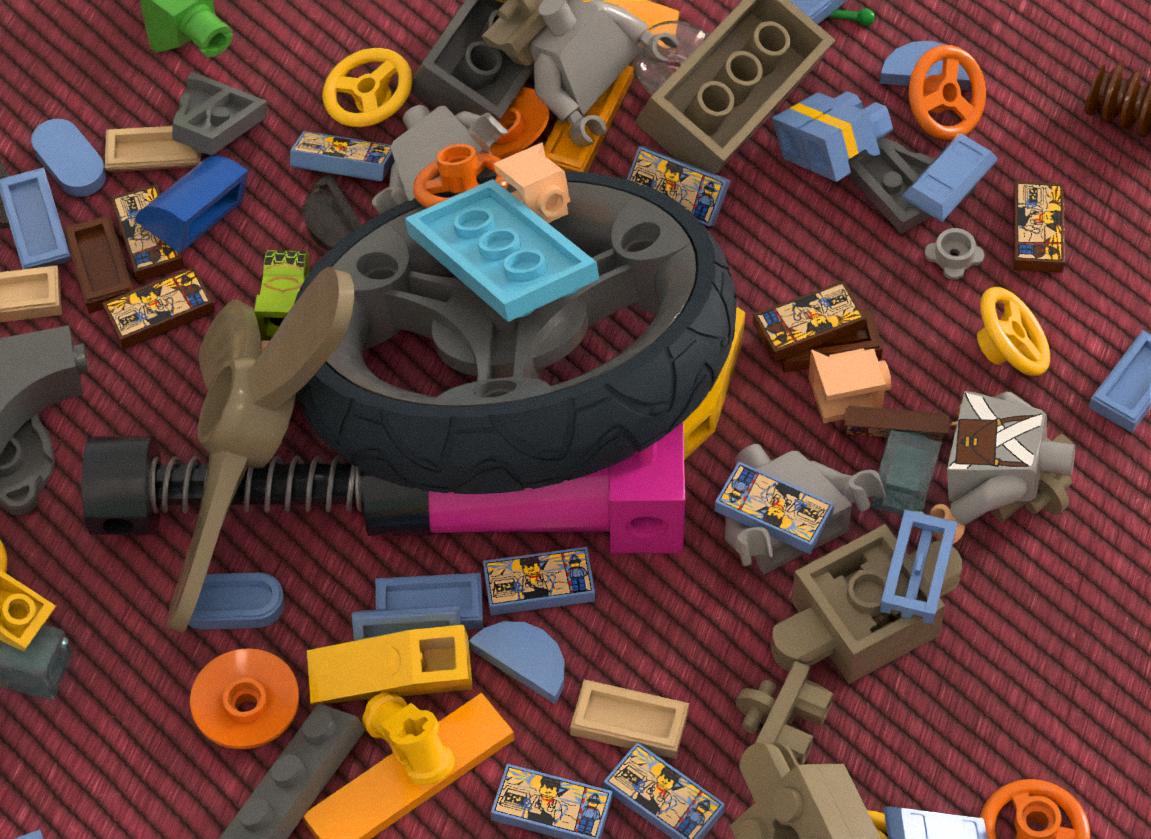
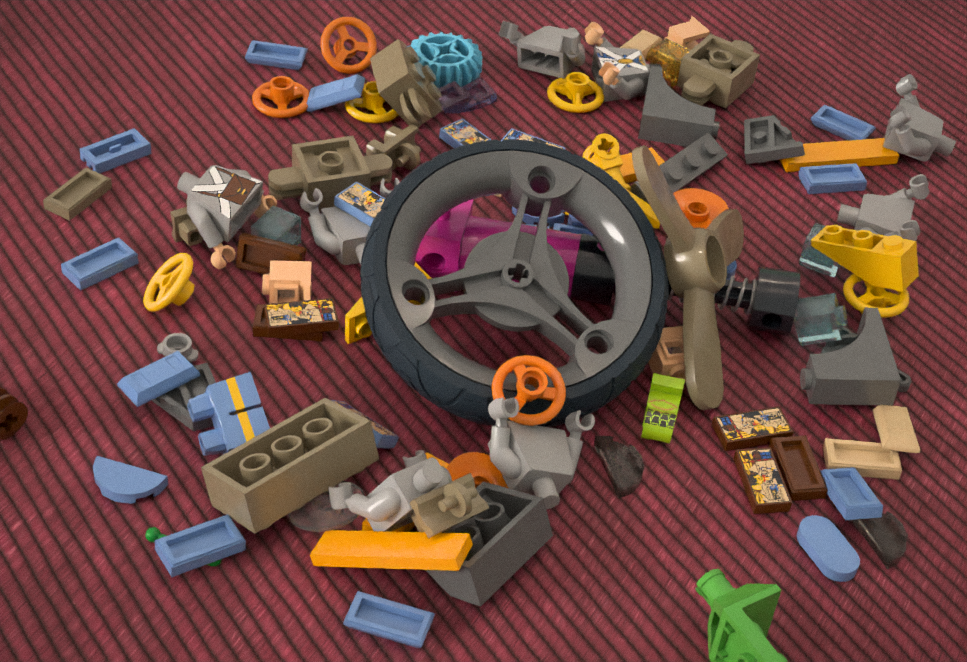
camera: 175 degrees left, 15 degrees down
(48, 483) = (819, 319): none -> clear light blue brick
(146, 150) = (760, 540): tan tile -> none
(195, 202) = (728, 474): blue brick -> none
(214, 114) = (711, 537): dark grey wing -> none
(342, 156) = (609, 497): tile -> none
(369, 90) = (583, 537): yellow piece -> none
(502, 250) = (517, 286): medium azure plate -> none
(538, 182) = (481, 339): light nougat window -> none
(909, 605) = (305, 156): medium blue tile -> none
(943, 92) = (130, 441): orange piece -> none
(1038, 227) = (108, 358): tile -> none

